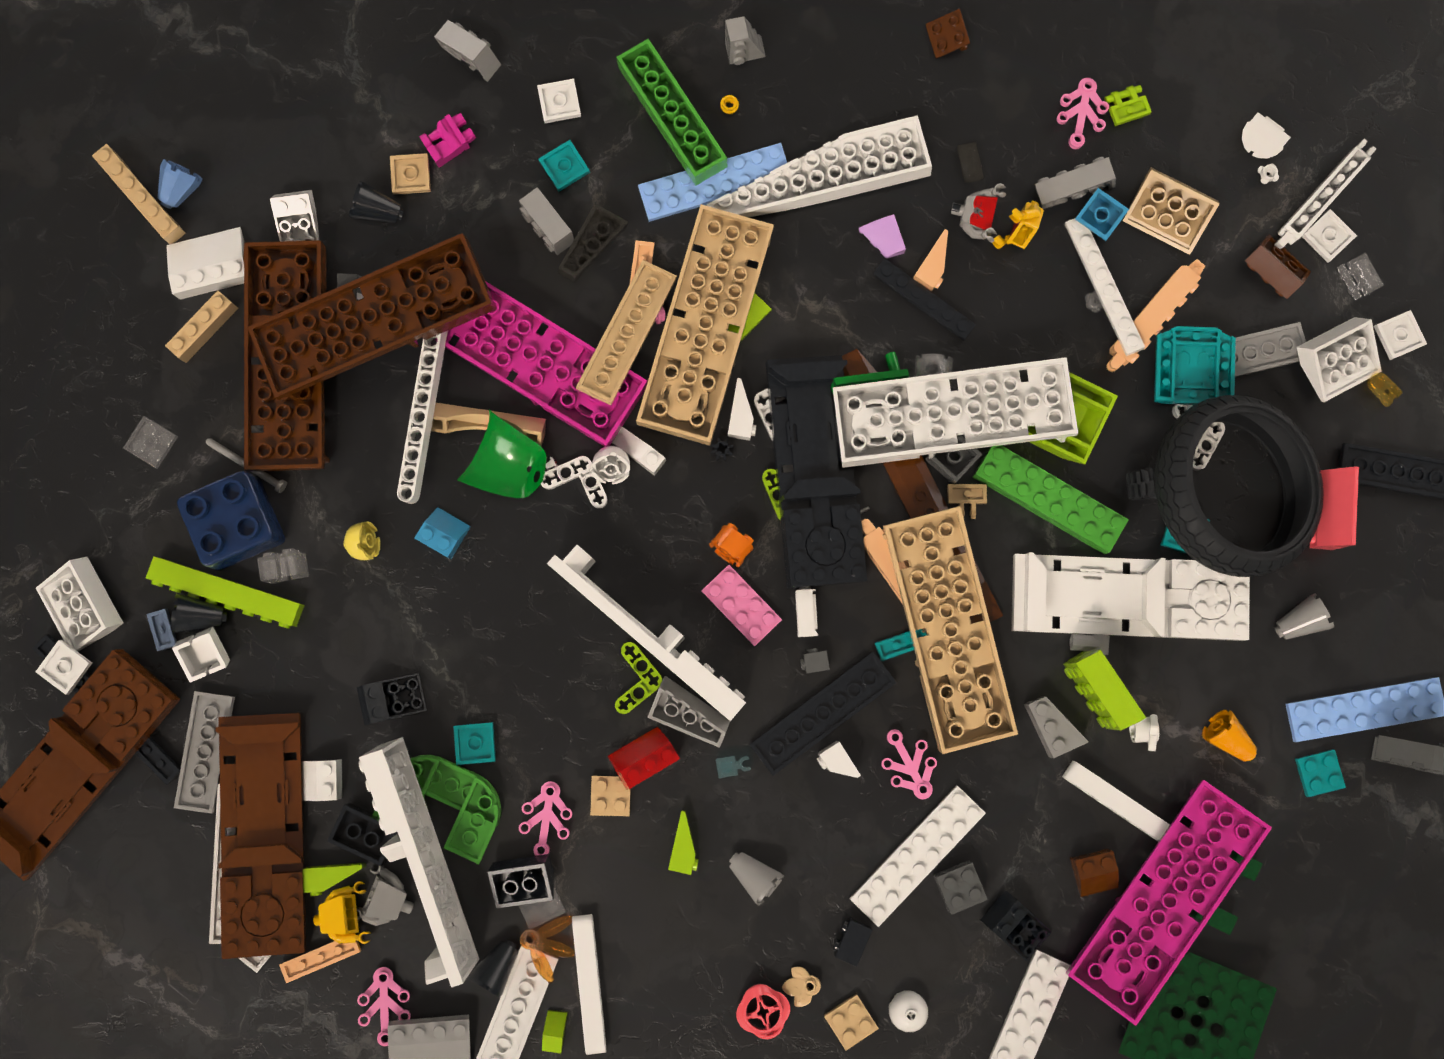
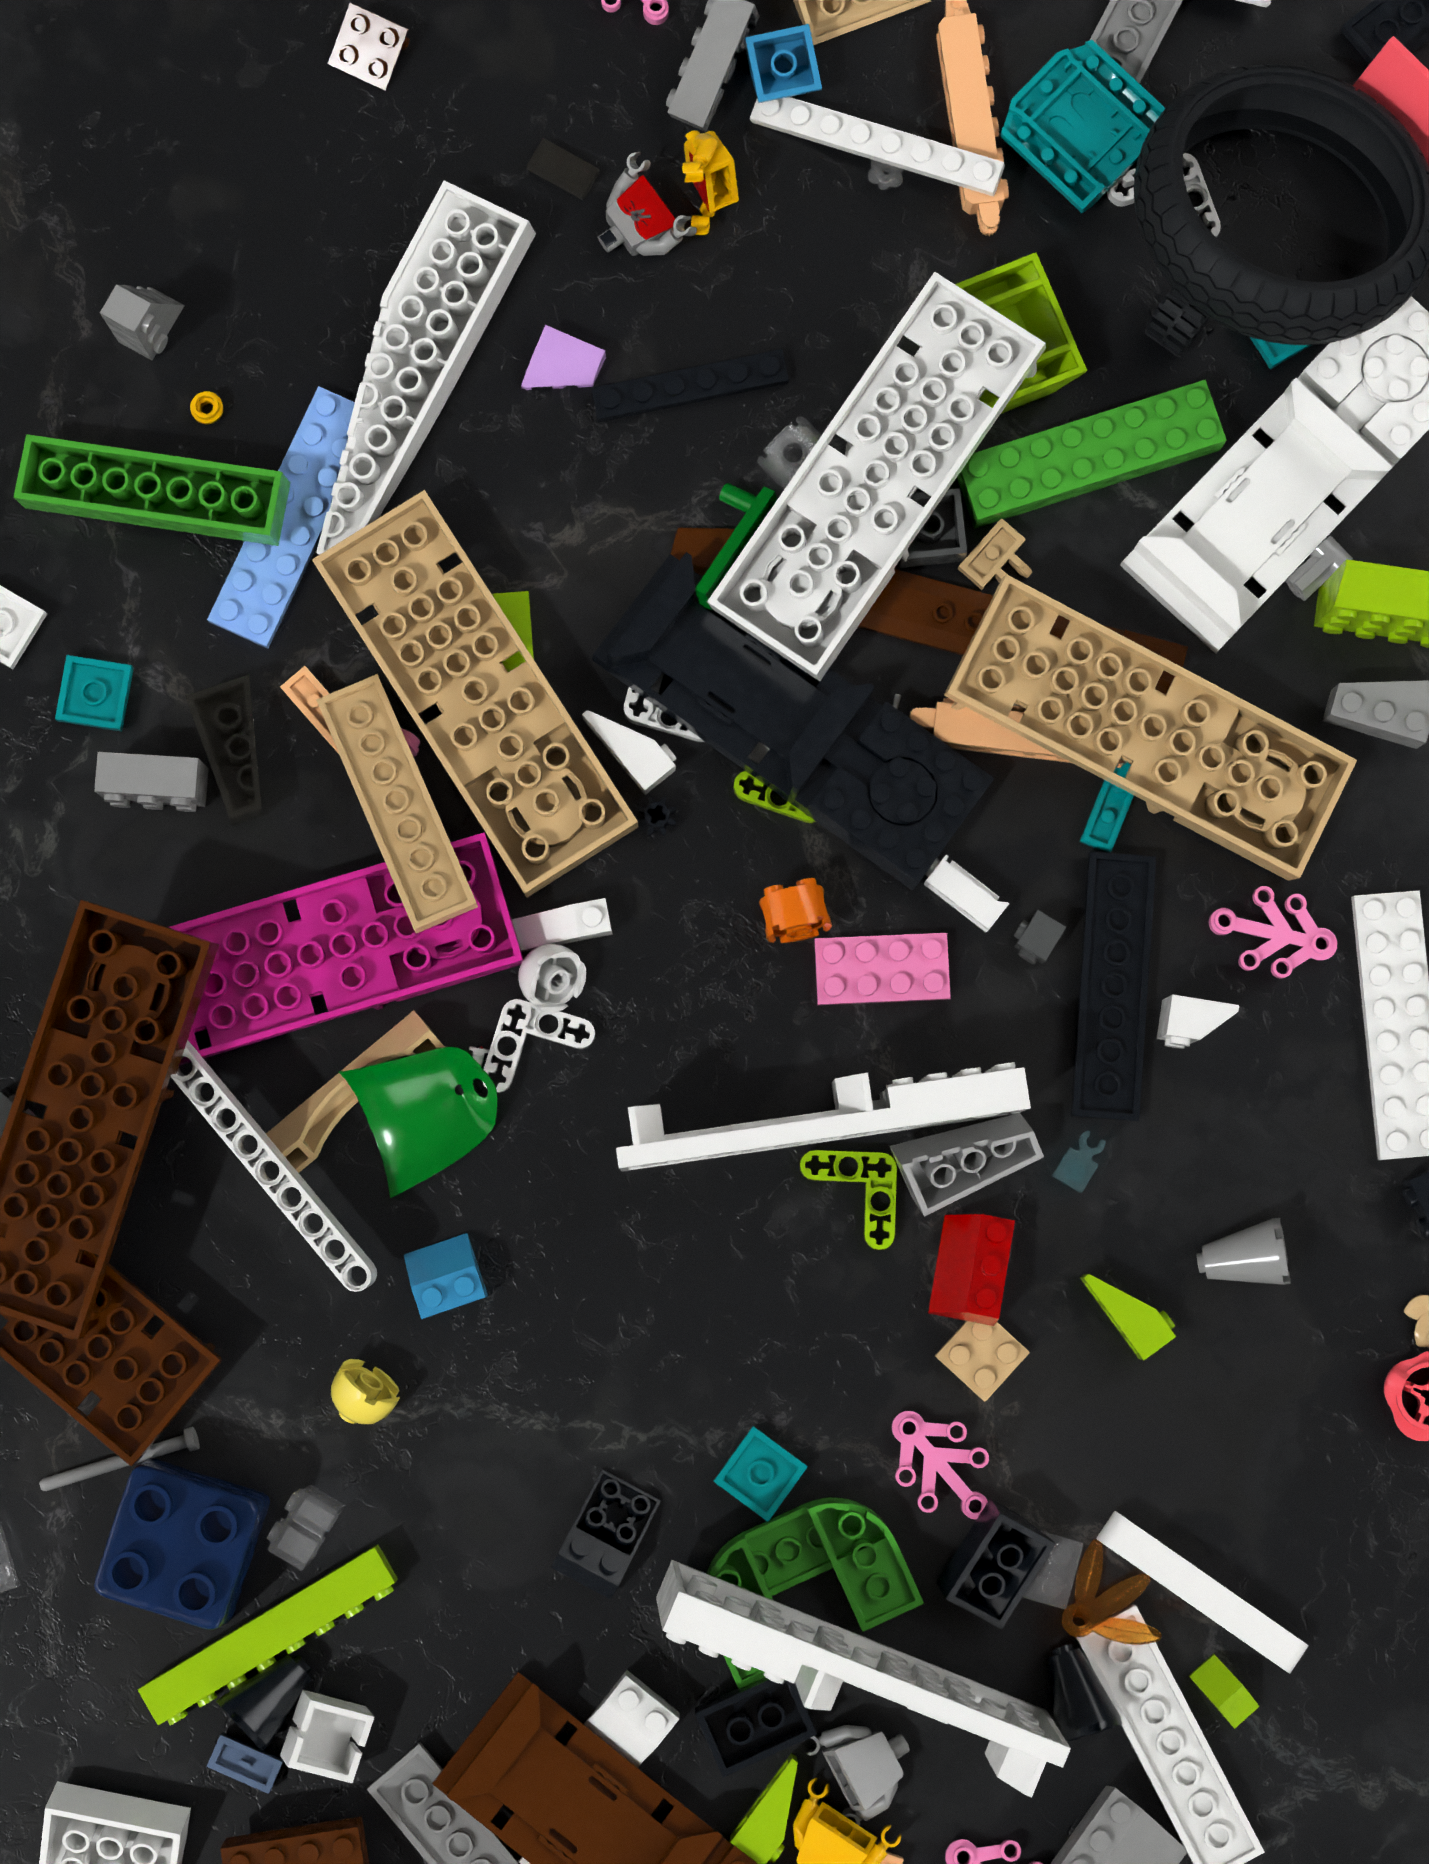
camera: 50 degrees left, 0 degrees up
(933, 266) = (658, 335): light nougat slope -> none

